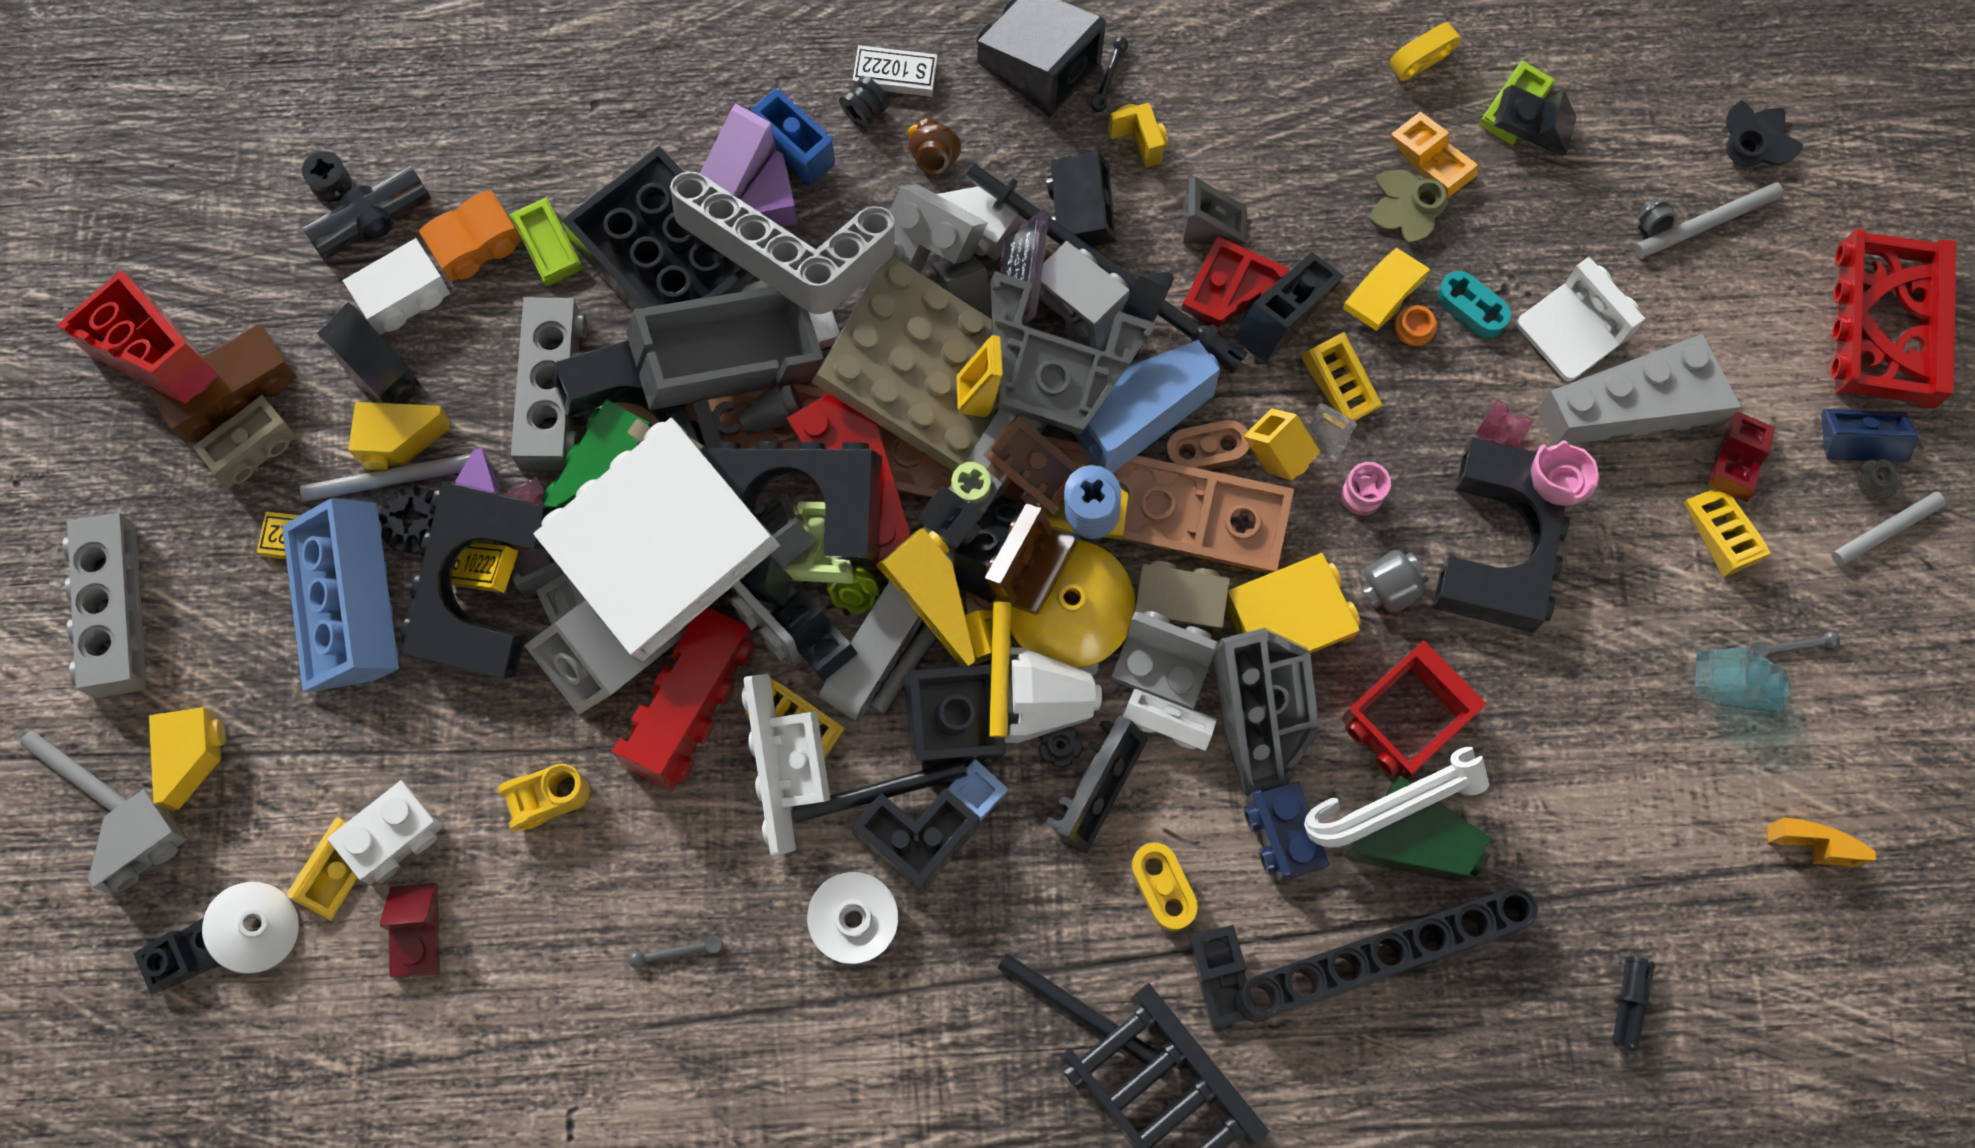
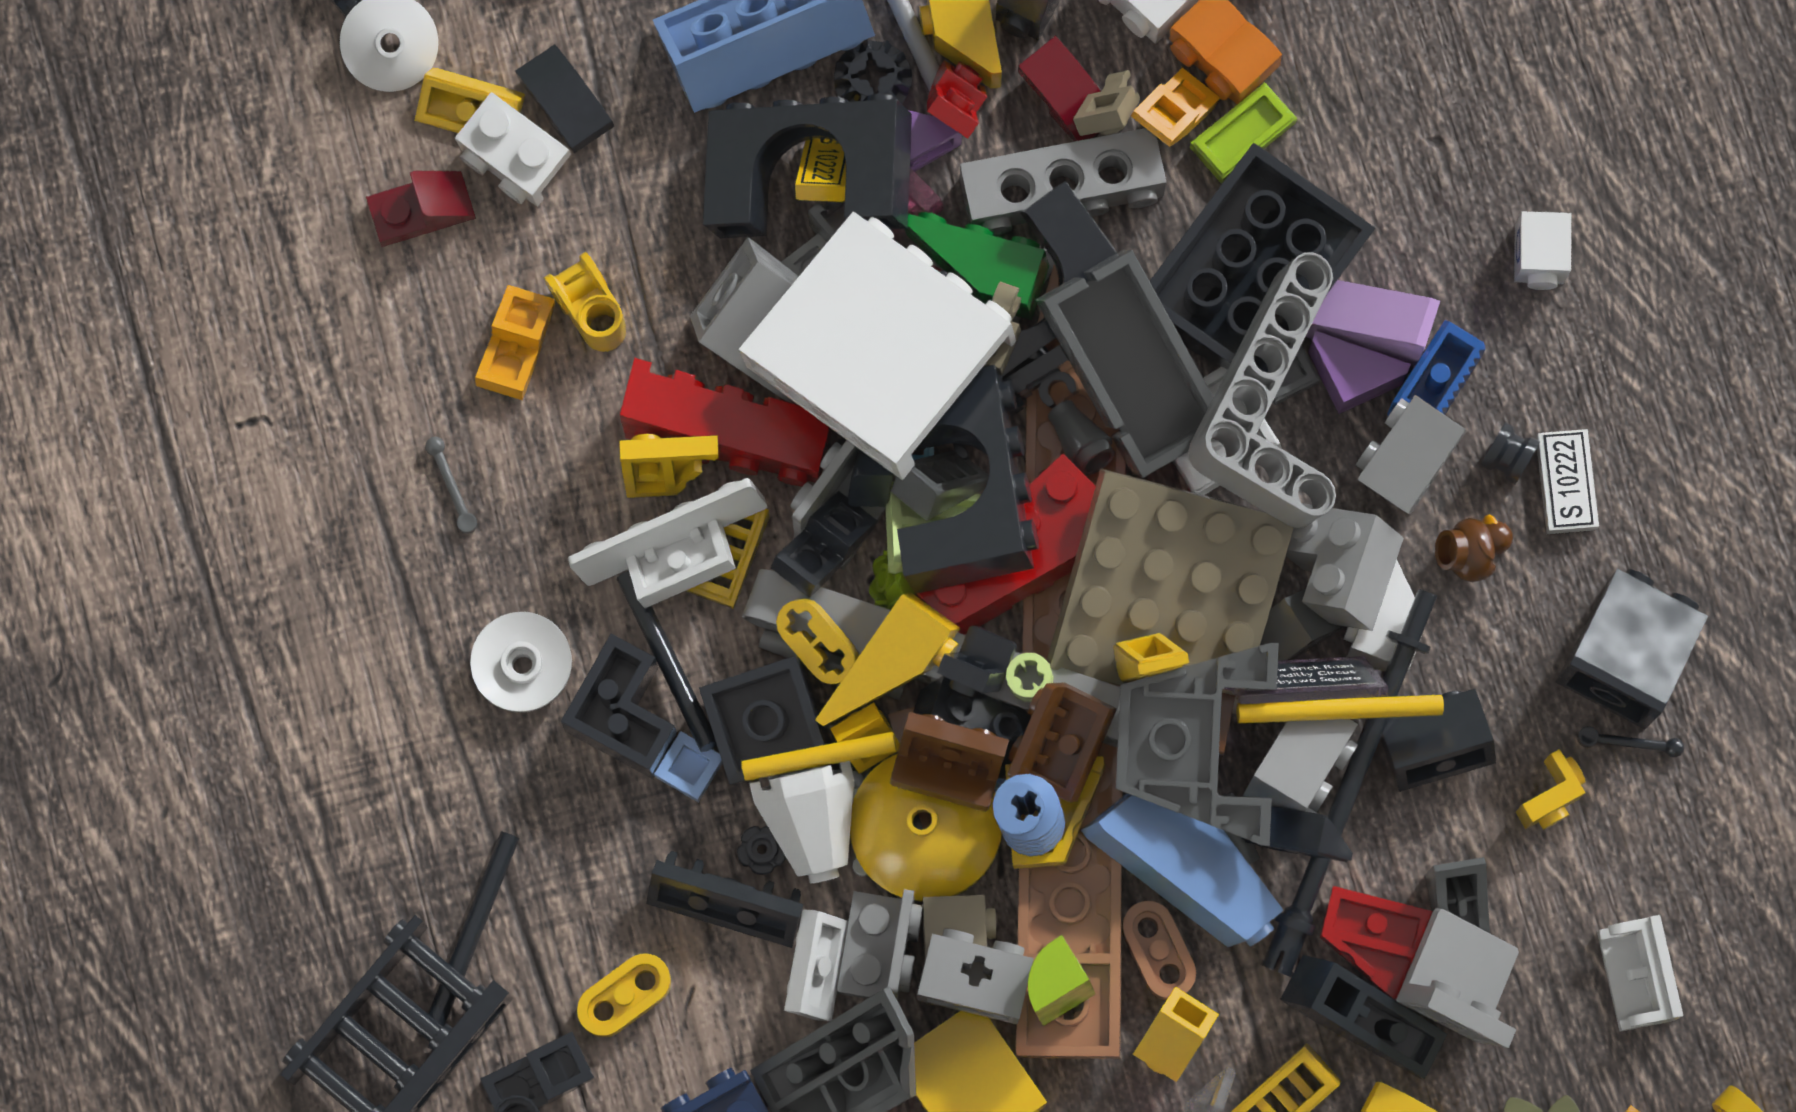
camera: 80 degrees right, 5 degrees up
(350, 780) = (564, 98): none -> black slope
(450, 447) = (957, 97): none -> red slope
(471, 362) = (1059, 83): none -> dark red slope
(498, 329) = (1109, 109): none -> dark tan plate
(511, 279) = (1176, 107): none -> light orange slope
(561, 869) = (515, 342): none -> light orange slope
(705, 42) = (1542, 249): none -> white brick
(710, 756) = (663, 465): none -> yellow wing
(856, 158) = (1410, 453): none -> light grey brick
(902, 662) = (808, 648): none -> yellow beam
(1053, 248) = (1341, 709): none -> yellow bar
(1210, 604) = (994, 998): none -> light grey brick
(1232, 513) = (1057, 981): none -> lime brick
(1276, 228) = (1460, 979): none -> light grey bracket
(1292, 102) = (1640, 973): none -> white hinge

